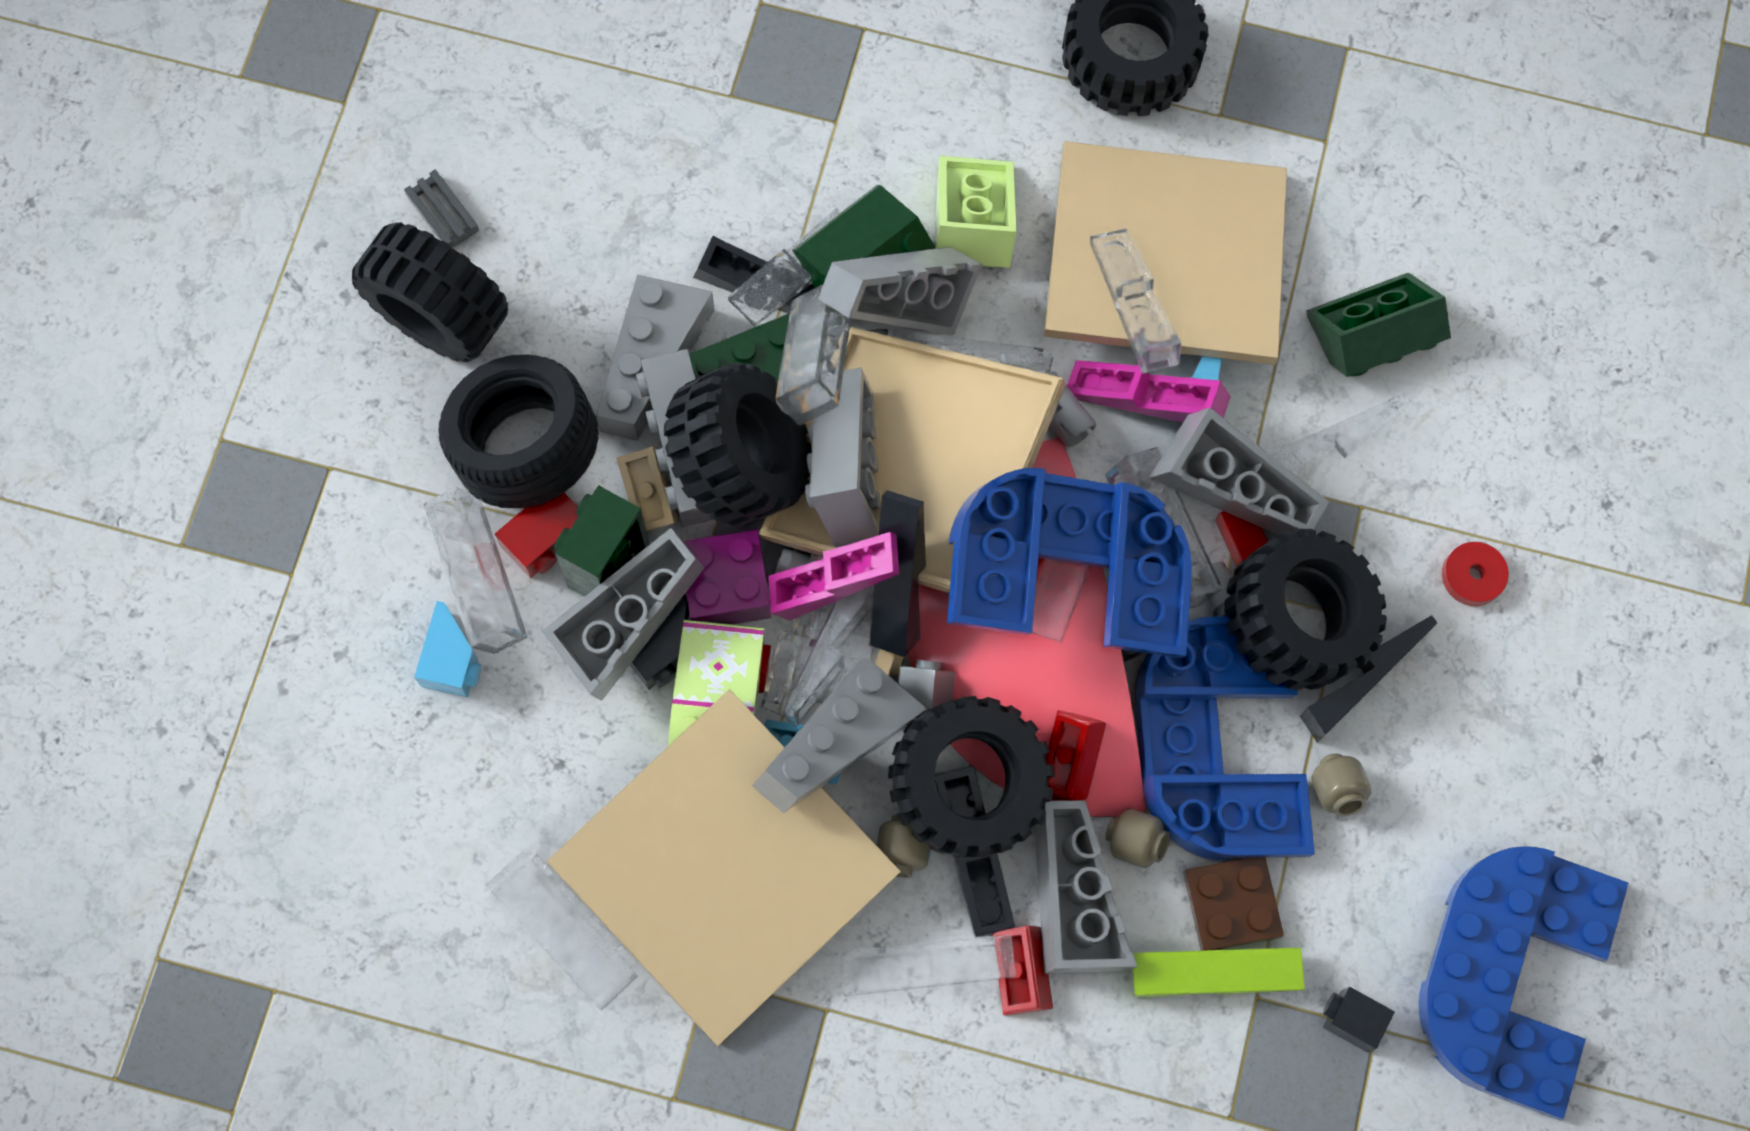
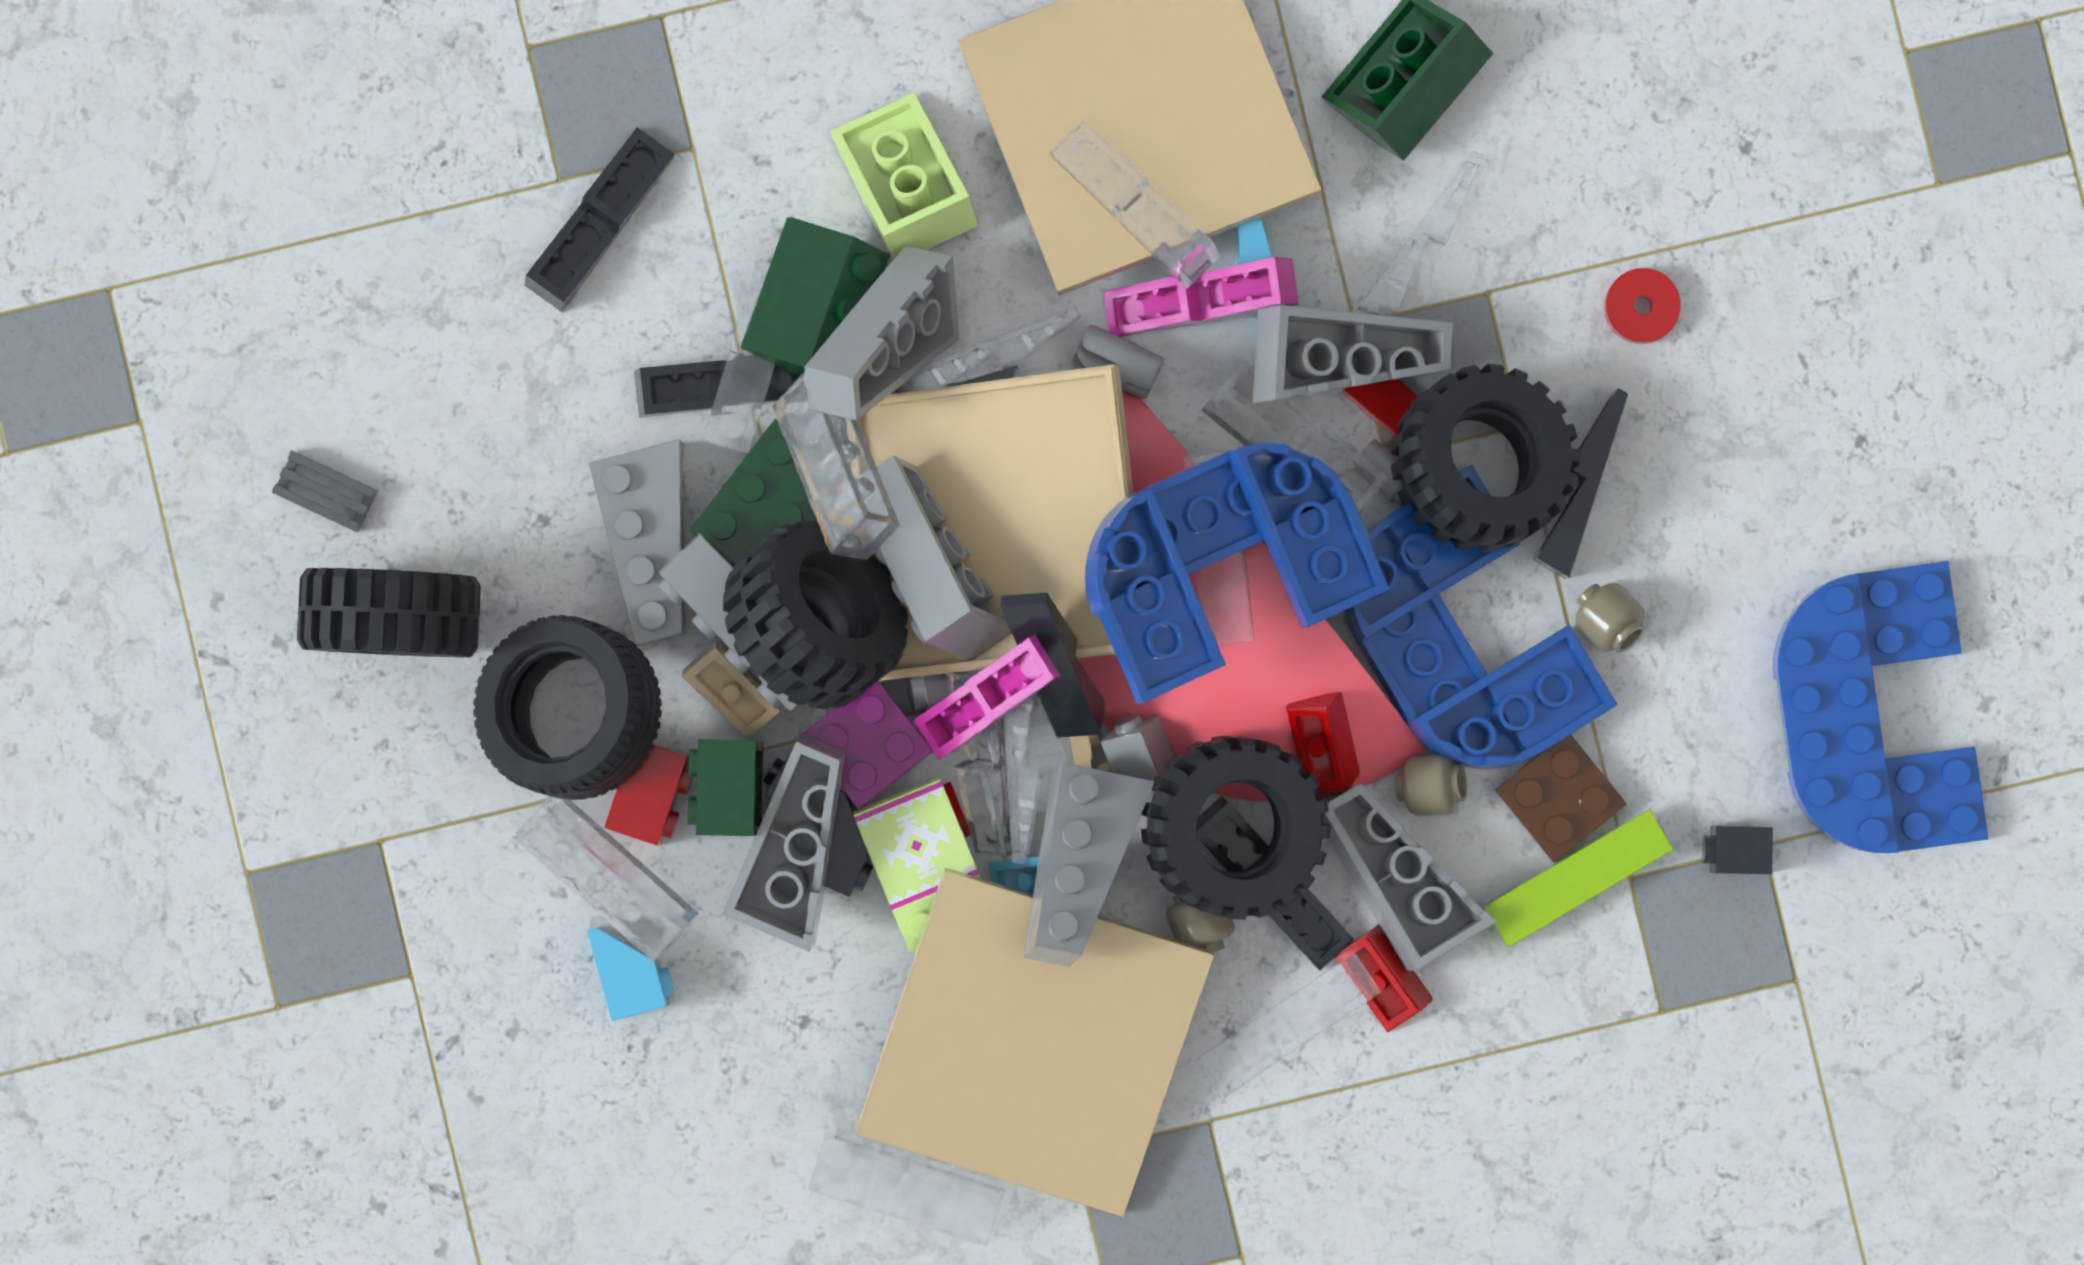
camera: 20 degrees left, 15 degrees up
(730, 137) = (598, 219): none -> black slope

